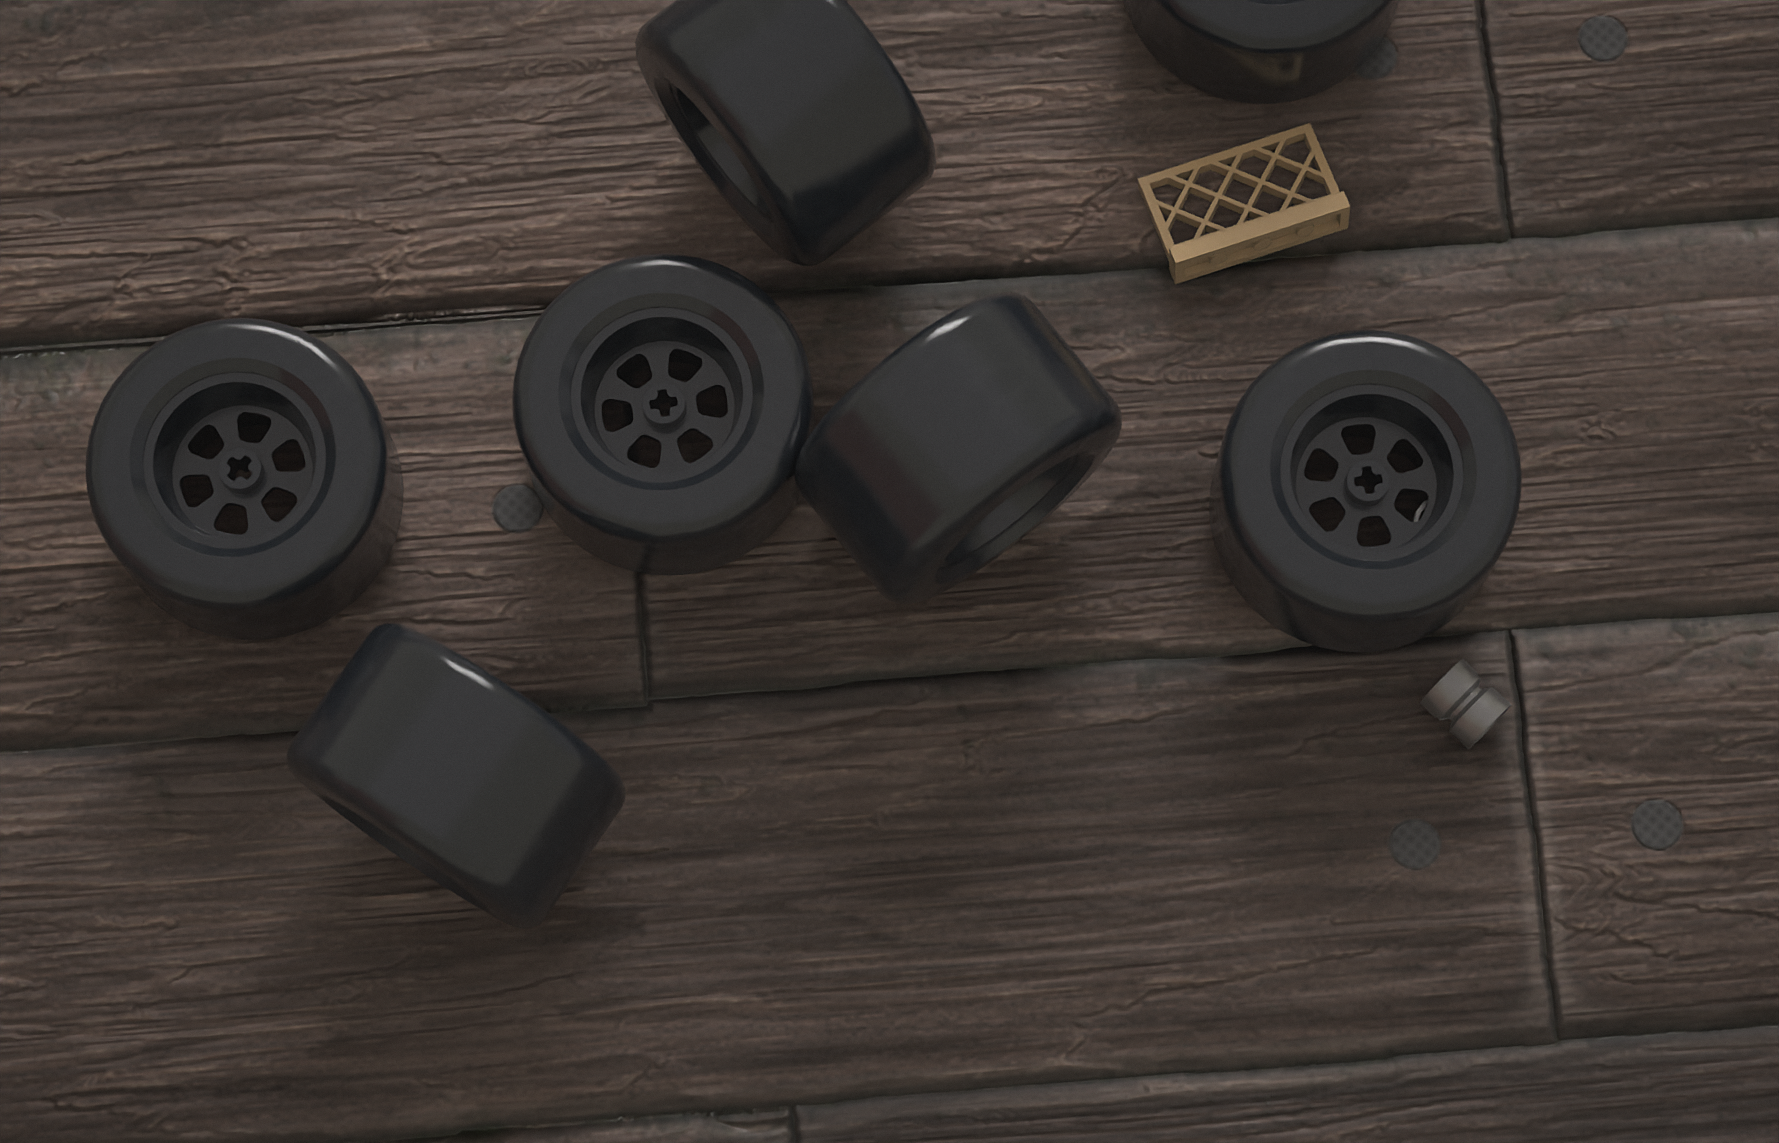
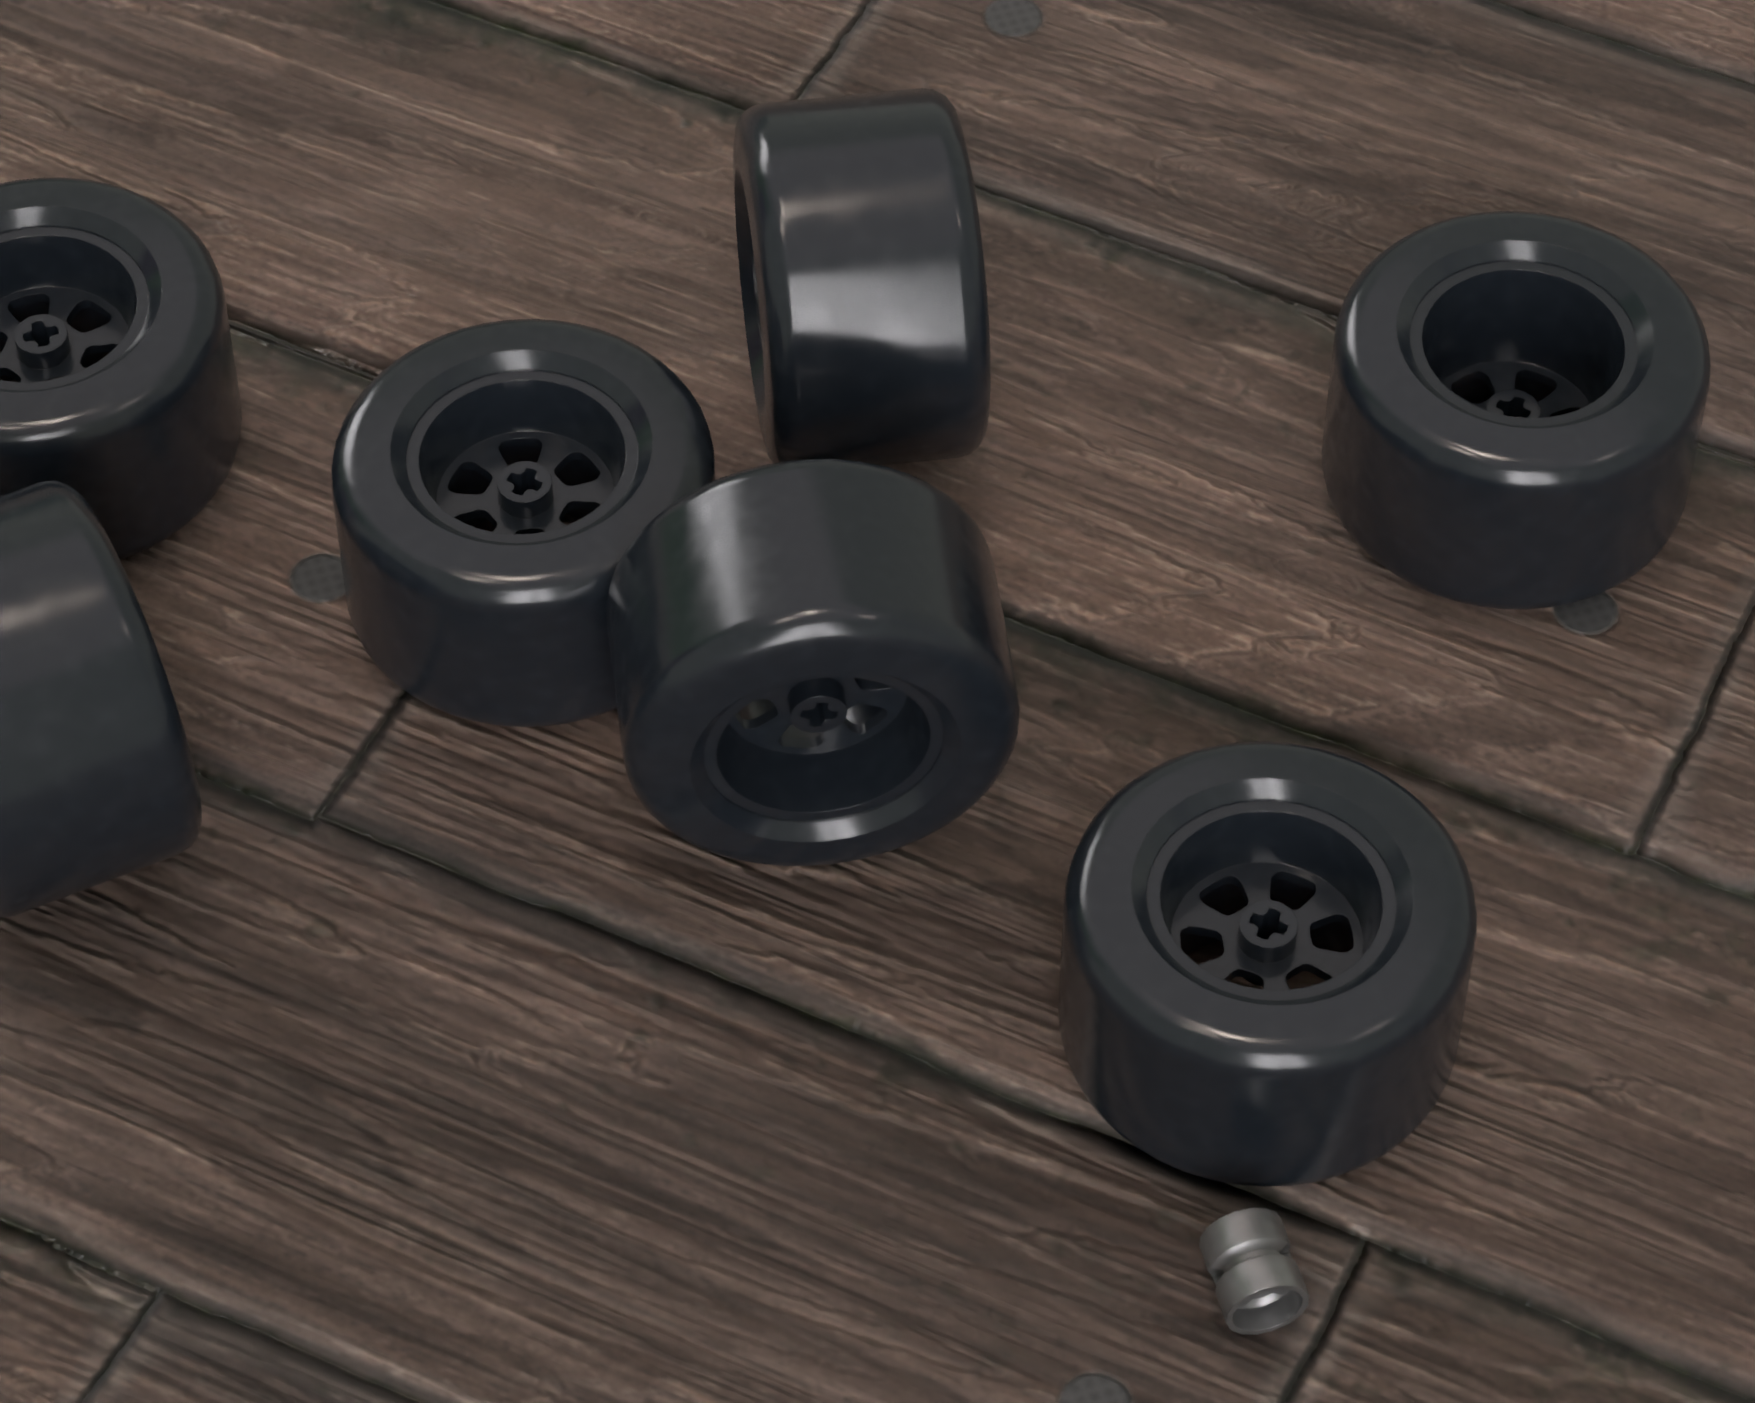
camera: 30 degrees right, 25 degrees down
(1265, 231) = (1332, 695): tan fence -> none

